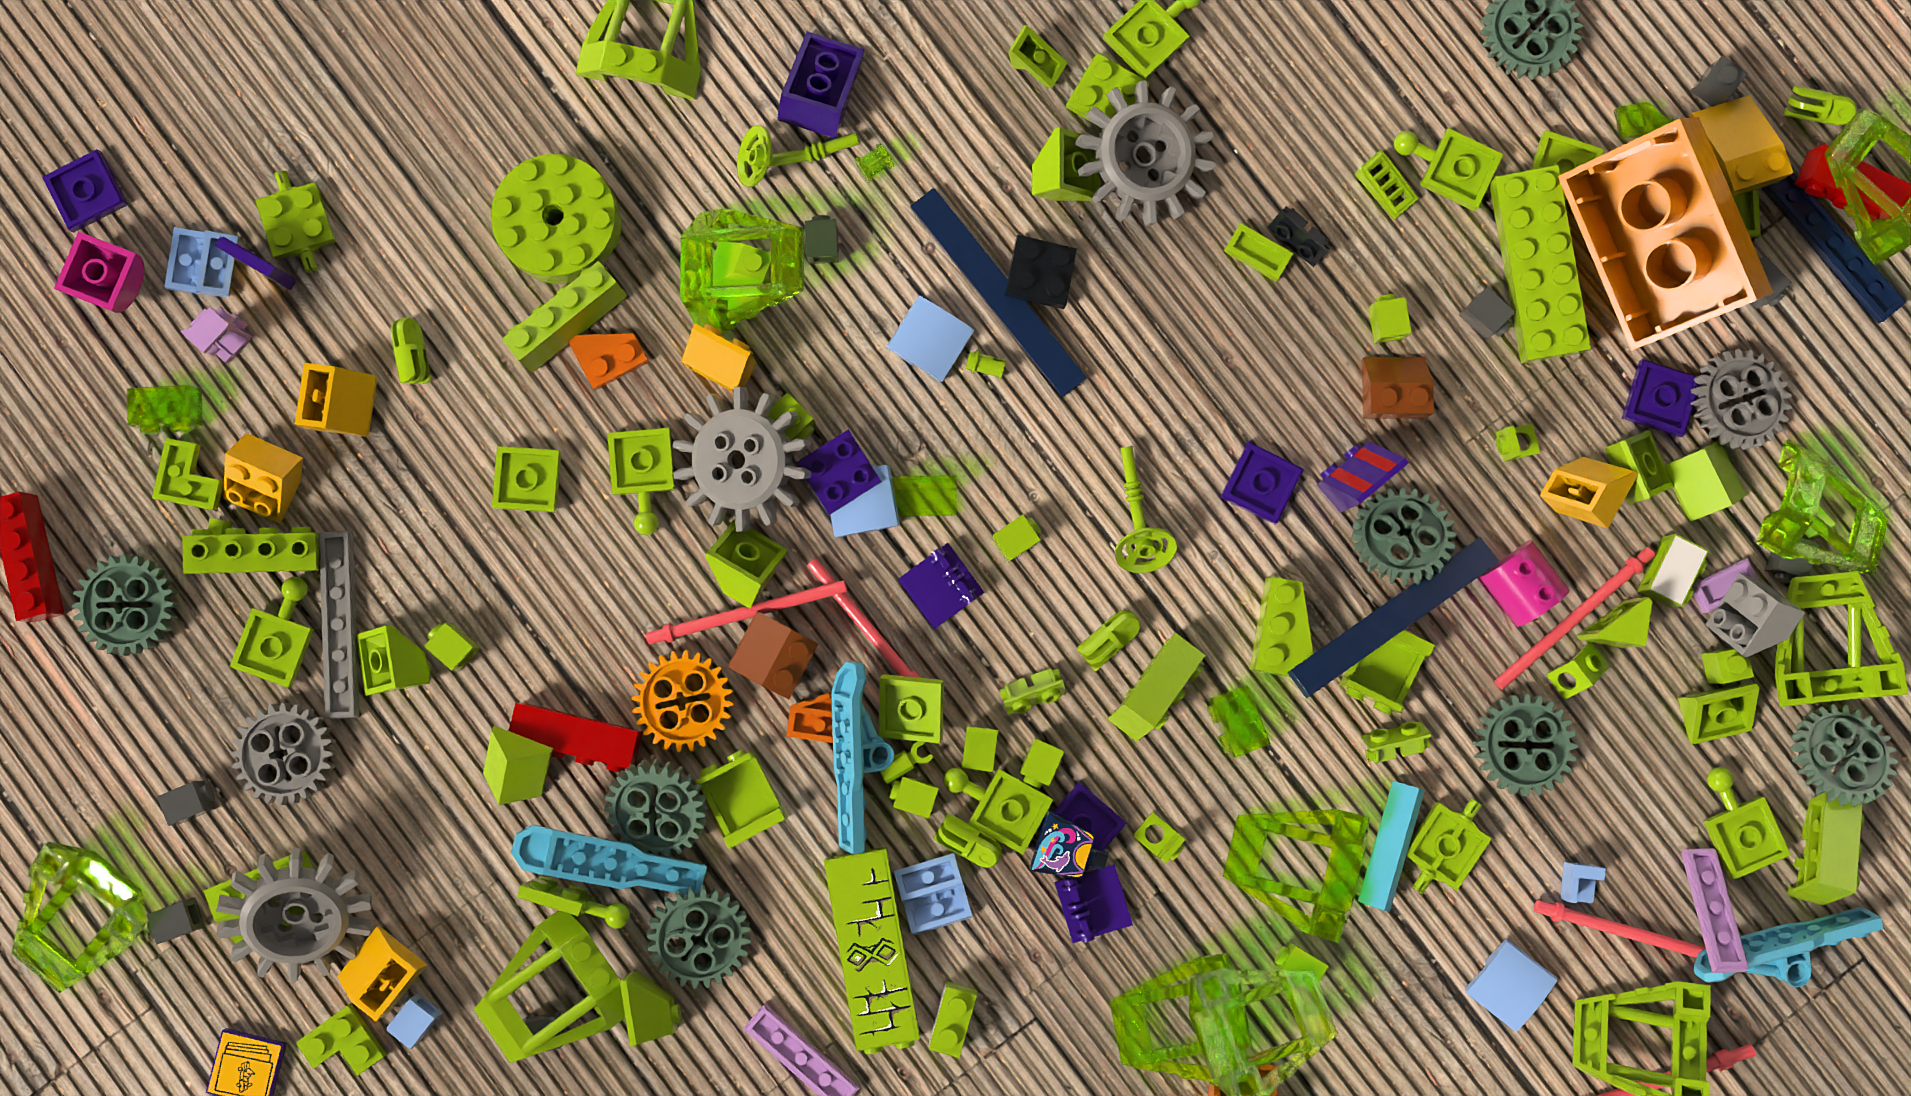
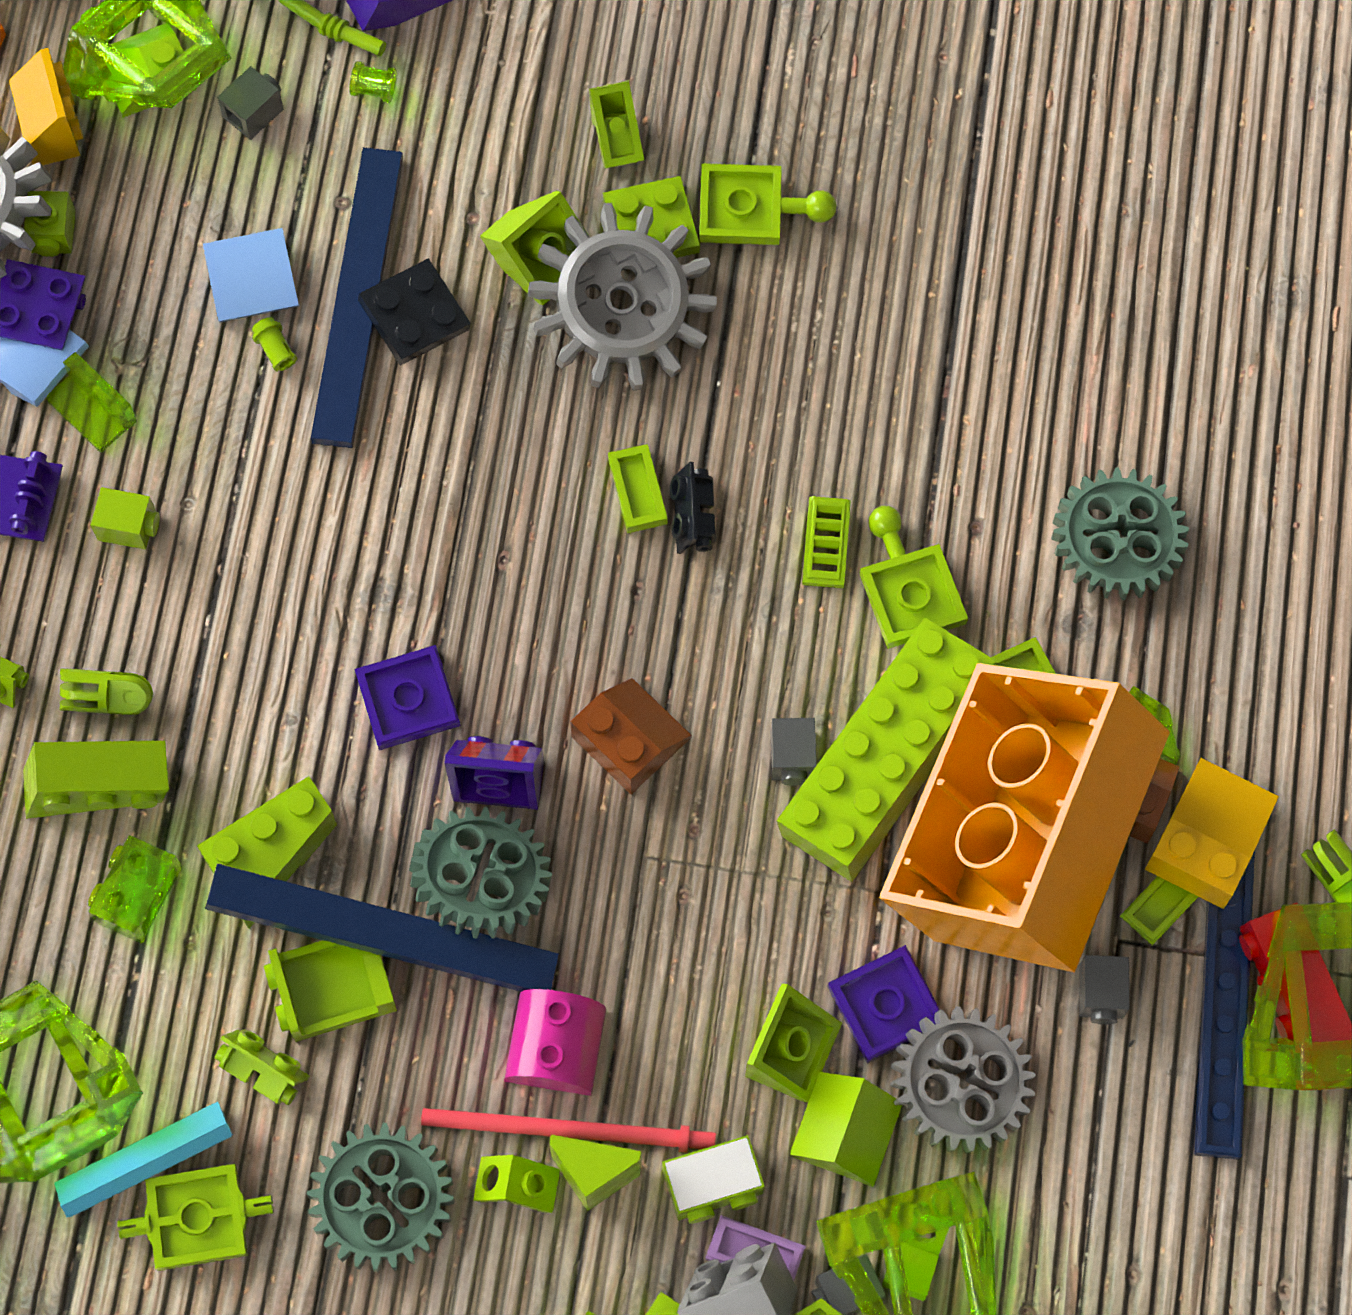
camera: 45 degrees right, 15 degrees down
(1141, 535) = (236, 633): lime dish -> none
(1389, 319) = (691, 663): lime brick -> none
(1508, 443) = (681, 890): lime bracket -> none
(1588, 490) = (706, 1004): yellow slope -> none
(1718, 82) = (1259, 753): dark grey brick -> none

